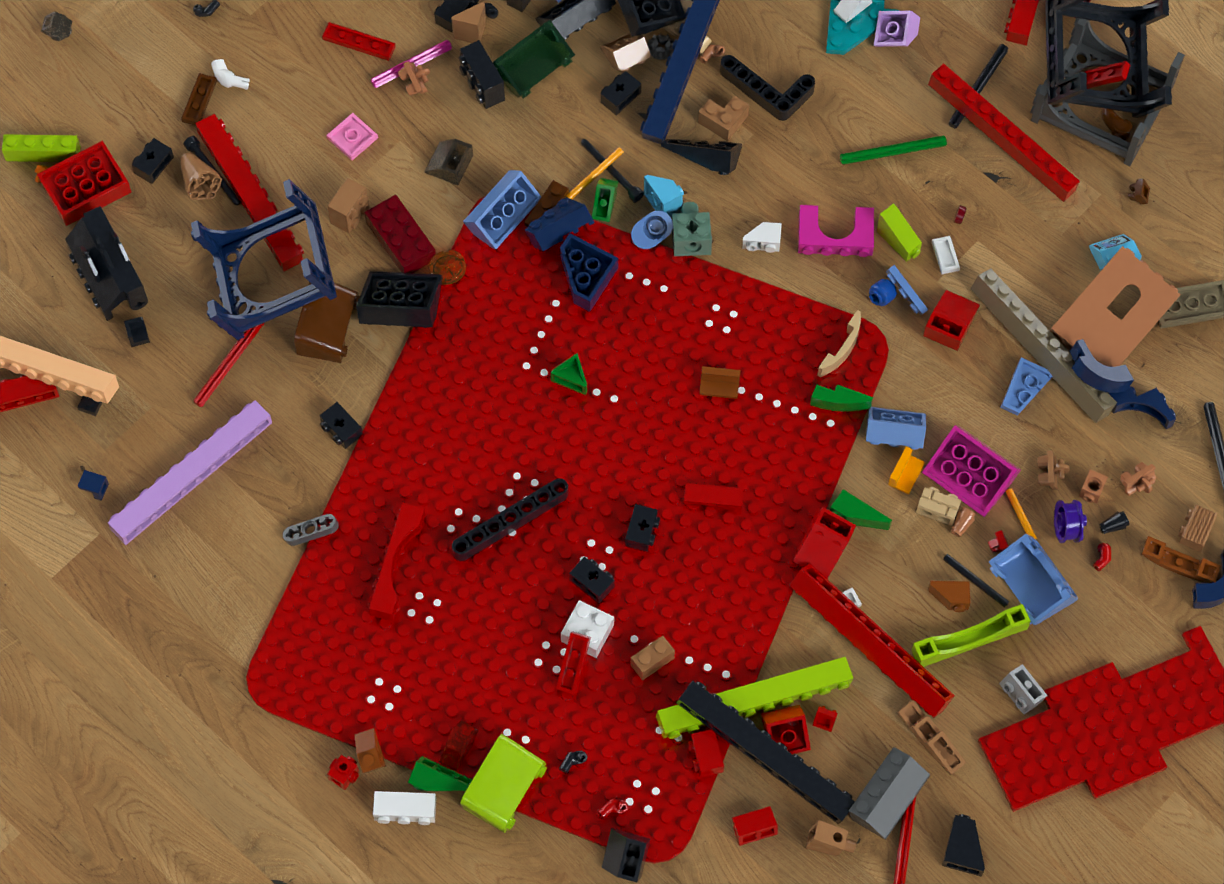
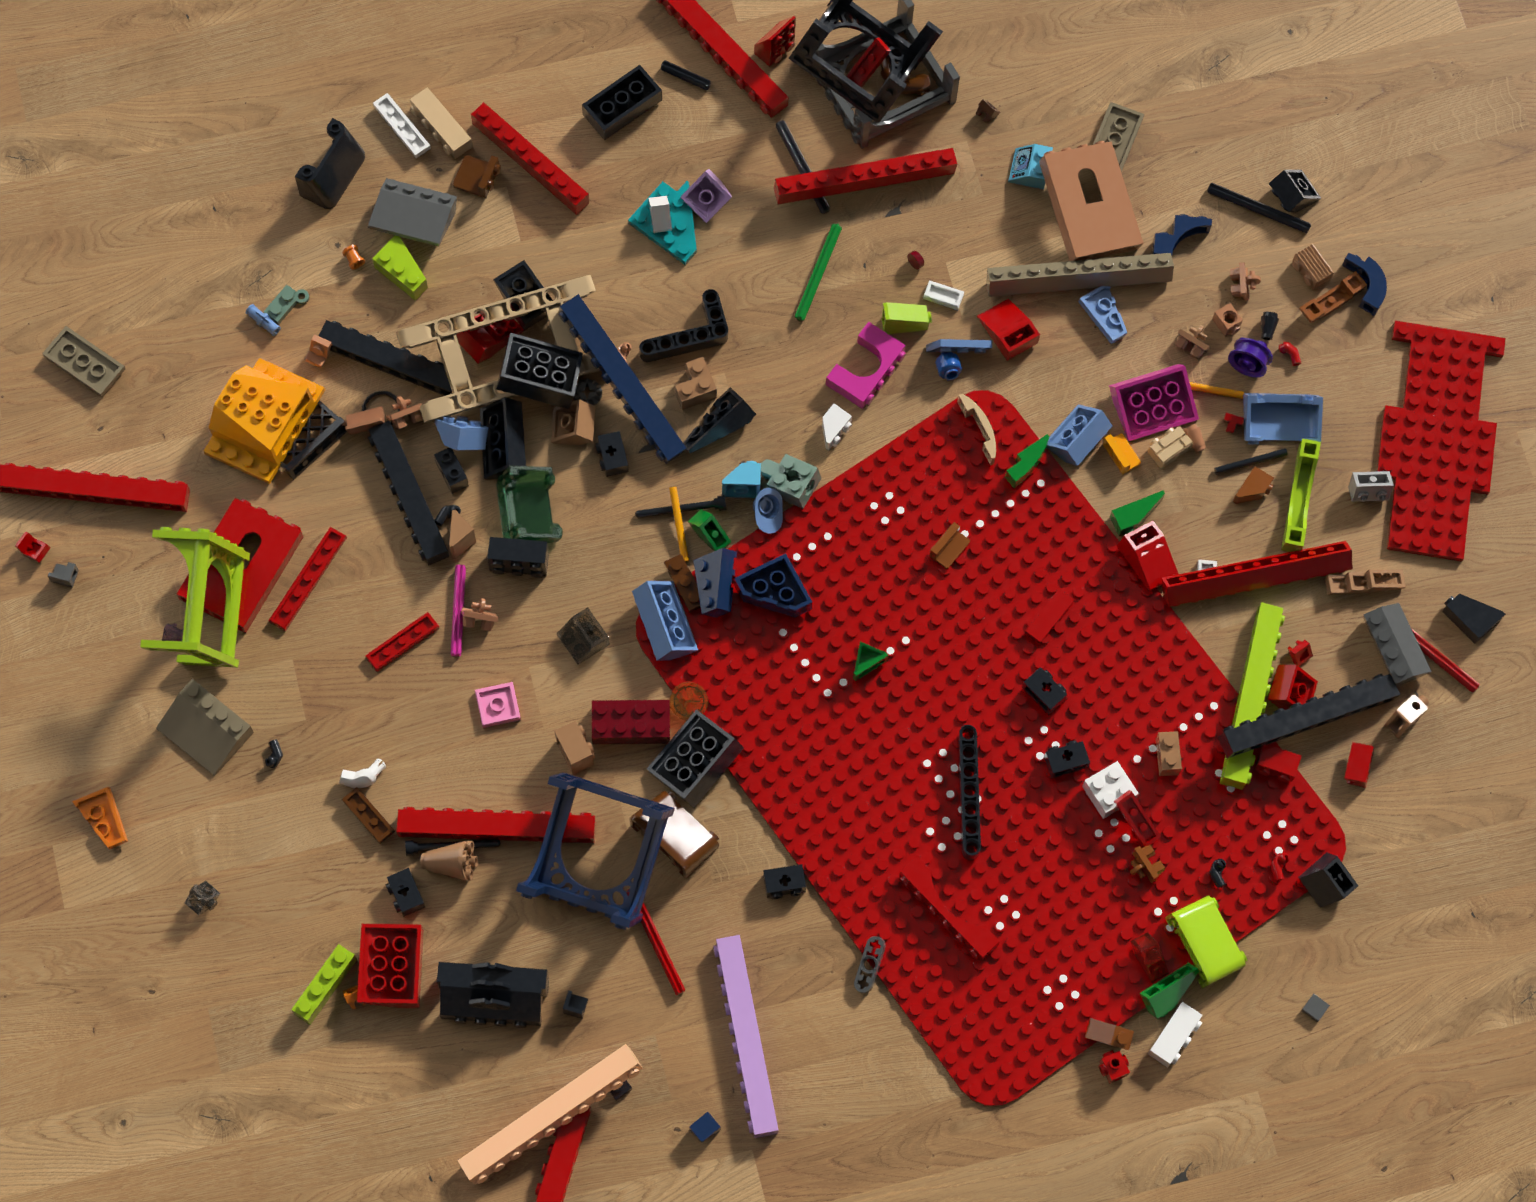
camera: 60 degrees left, 5 degrees up
(537, 703) = (1142, 856): none -> dark orange hips
(1097, 375) = (1139, 251): dark blue arch -> none

